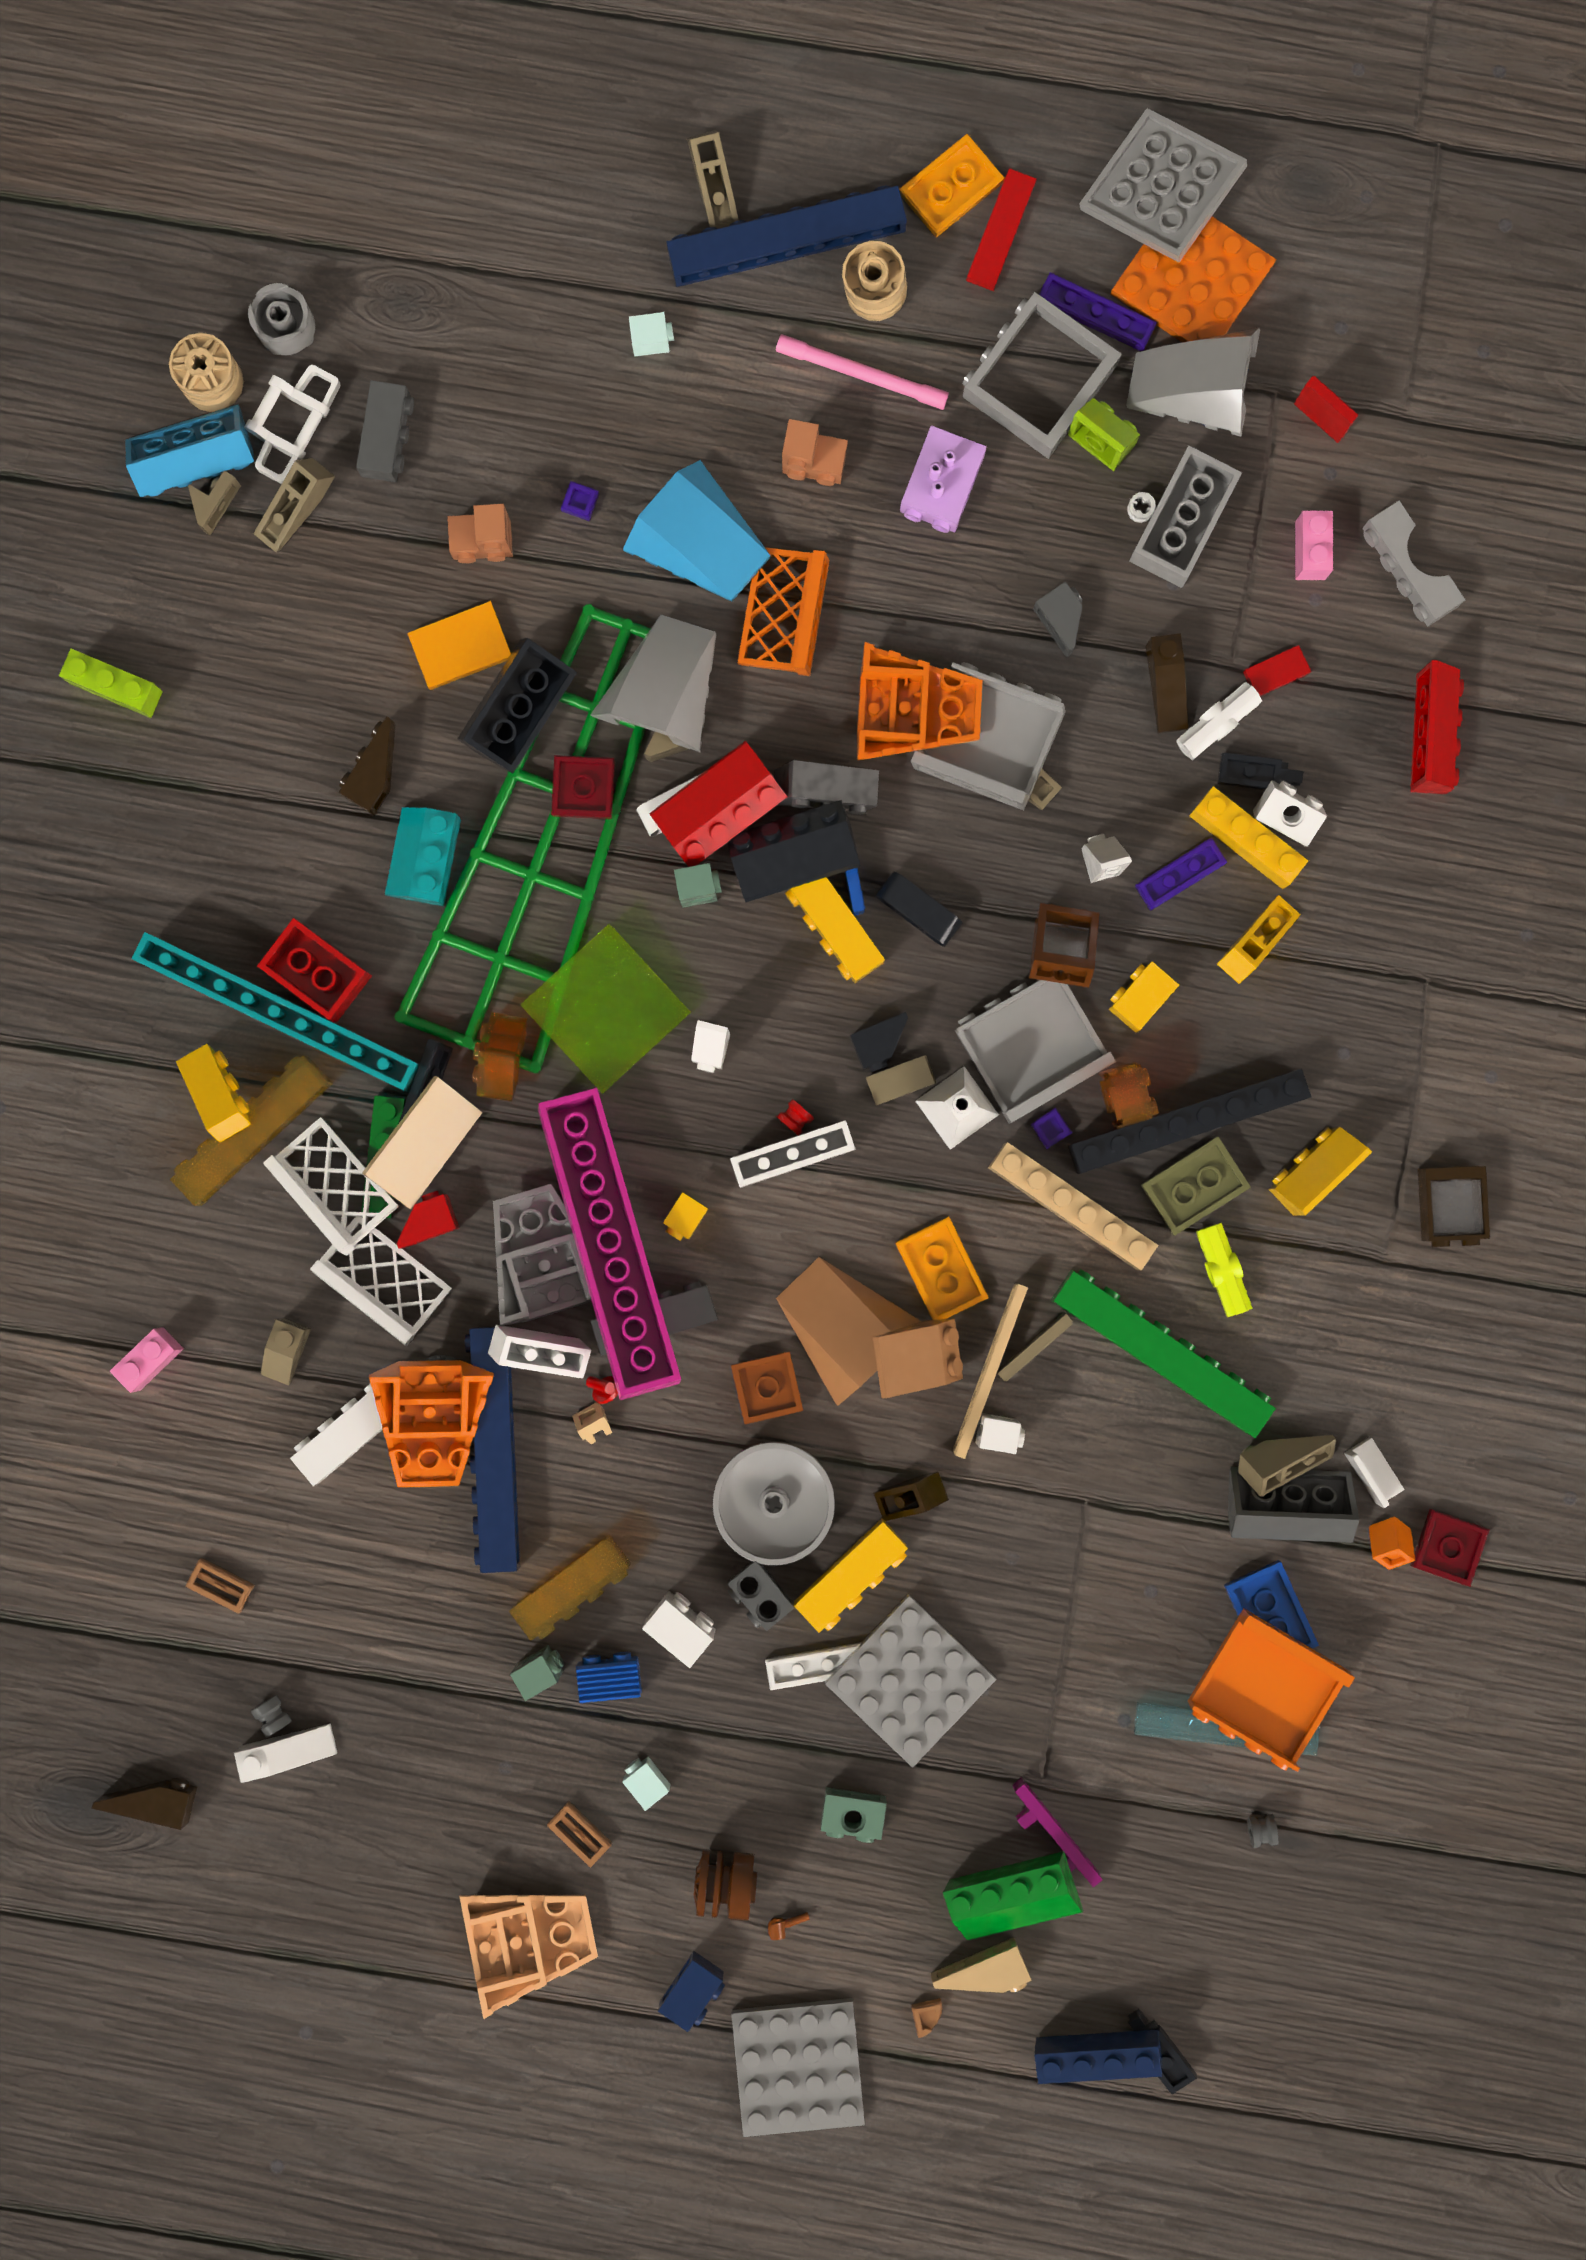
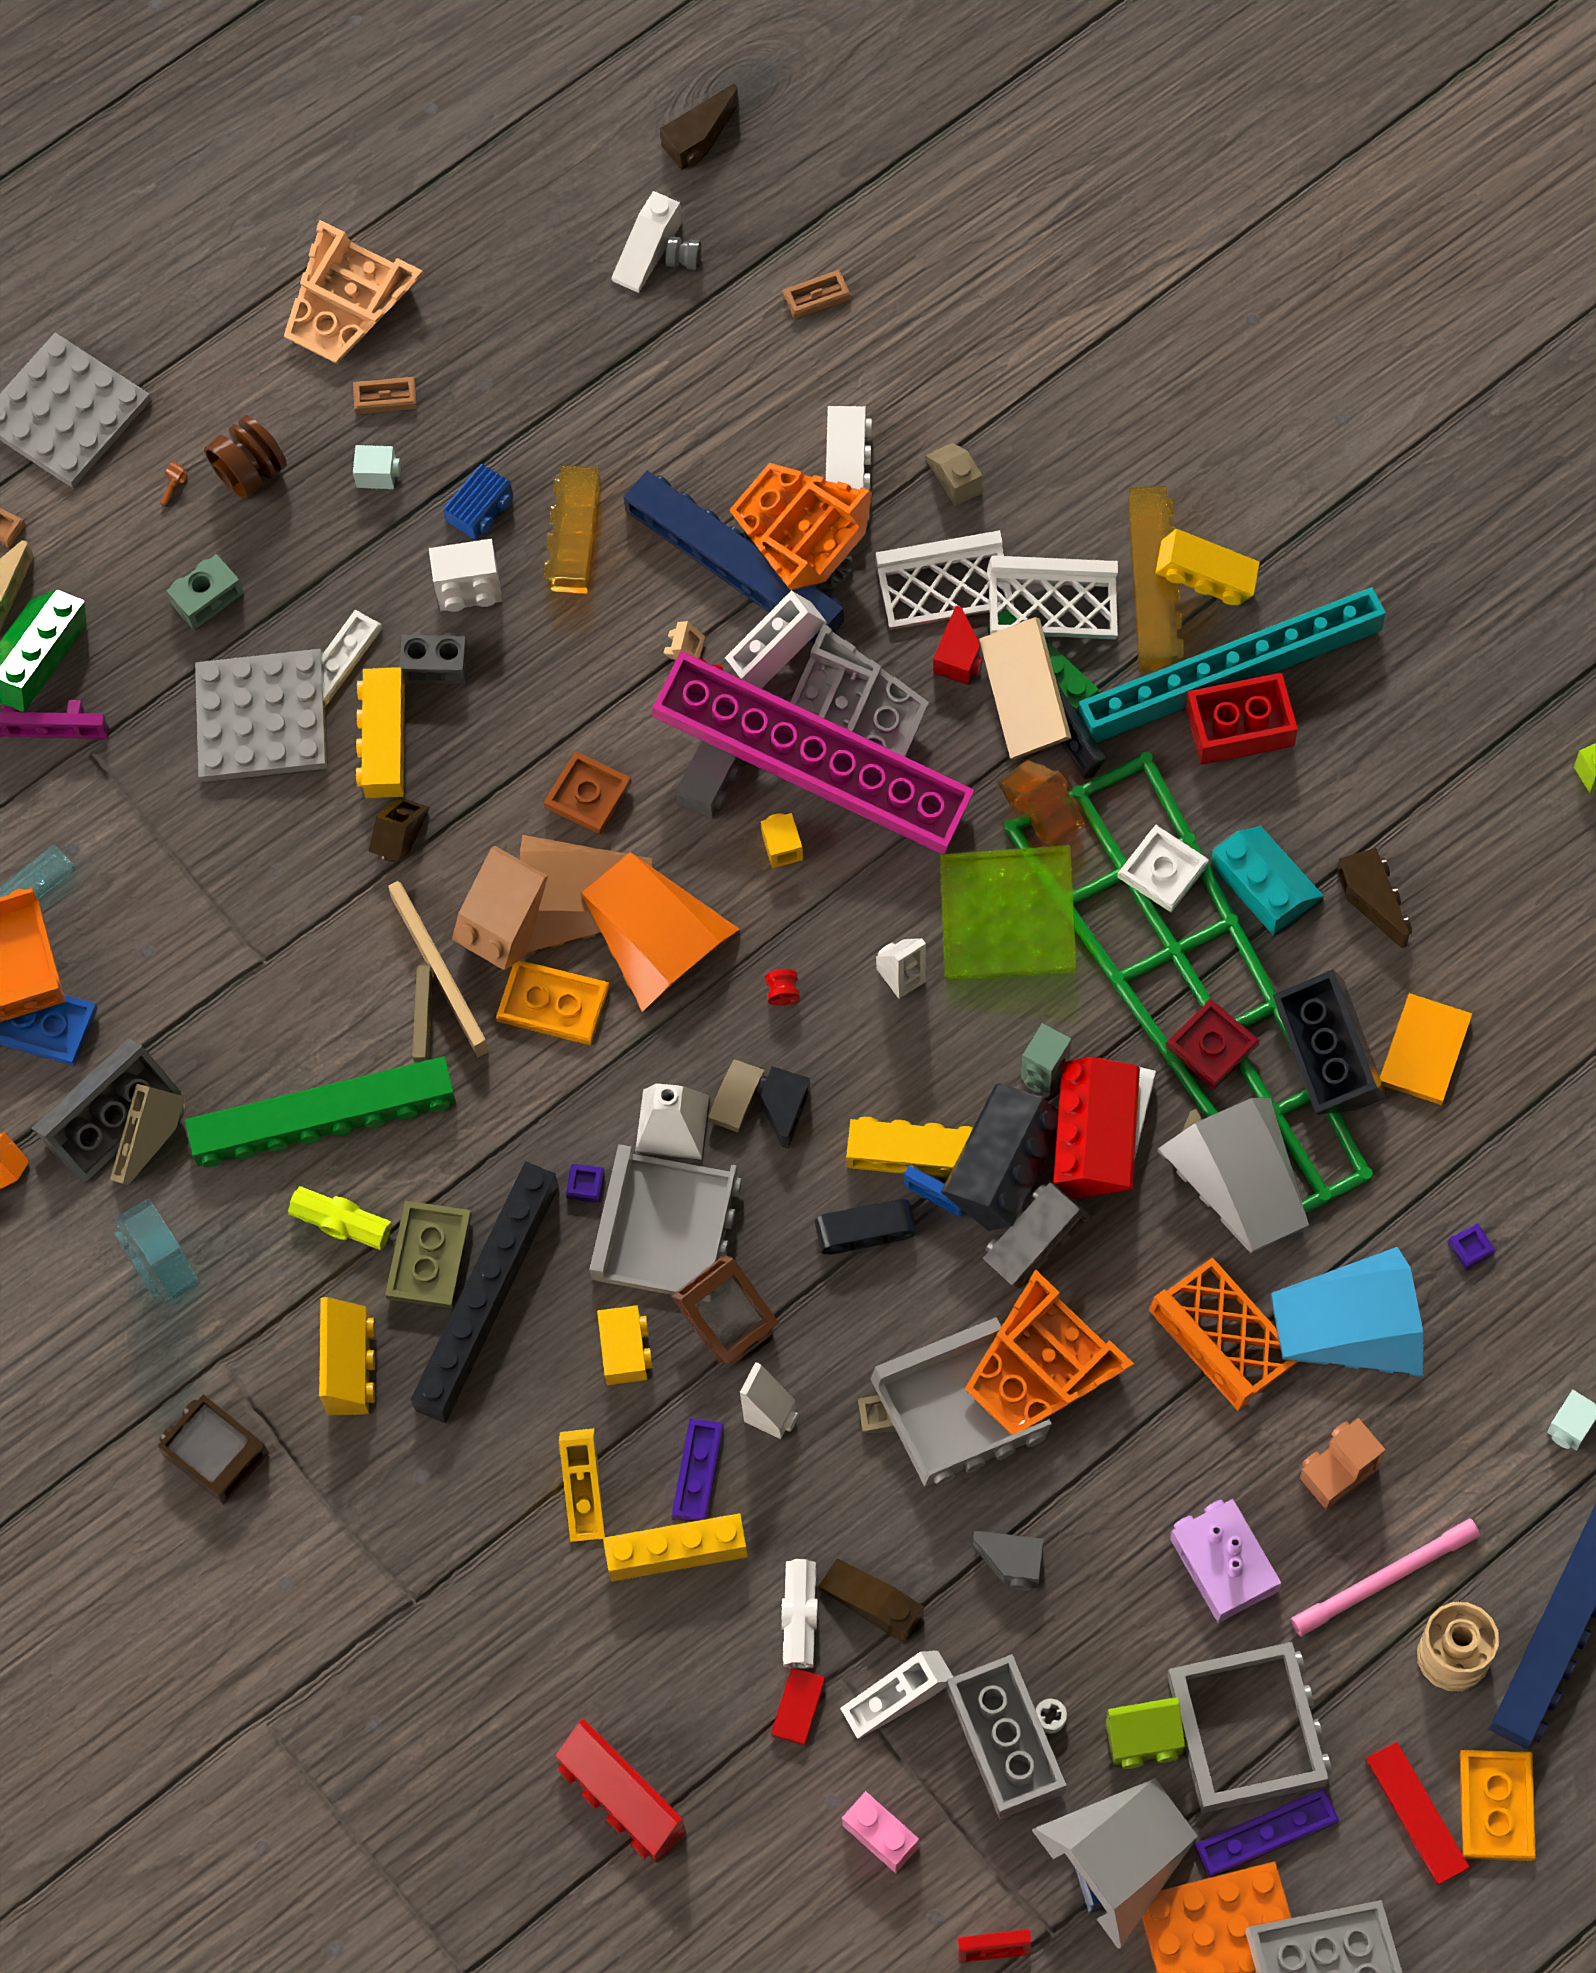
camera: 130 degrees right, 20 degrees down
(146, 1360) = (1039, 369): bright pink brick -> none
(478, 930) = (1163, 868): none -> white tile
(481, 535) = (1505, 1134): nougat brick -> none
(537, 1672) = (532, 451): sand green brick -> none
(691, 1991) = (193, 378): dark blue brick -> none
(773, 1503) = (493, 720): light grey dish -> none
(792, 1154) = (753, 957): white brick -> none
(829, 1244) = (652, 926): none -> orange wedge
(999, 1433) = (382, 927): white brick -> none
(1073, 1206) = (505, 1140): tan brick -> none
(1127, 1094) = (553, 1255): clear orange brick -> none
(1213, 611) = (897, 1692): none -> white slope
(1255, 771) = (725, 1608): black hinge -> none
(1298, 827) = (664, 1597): white brick -> none
(1369, 1363) = (154, 1252): none -> clear light blue brick
(1374, 1471) = (66, 1196): white panel -> none
(1430, 595) = (742, 1899): light grey arch -> none

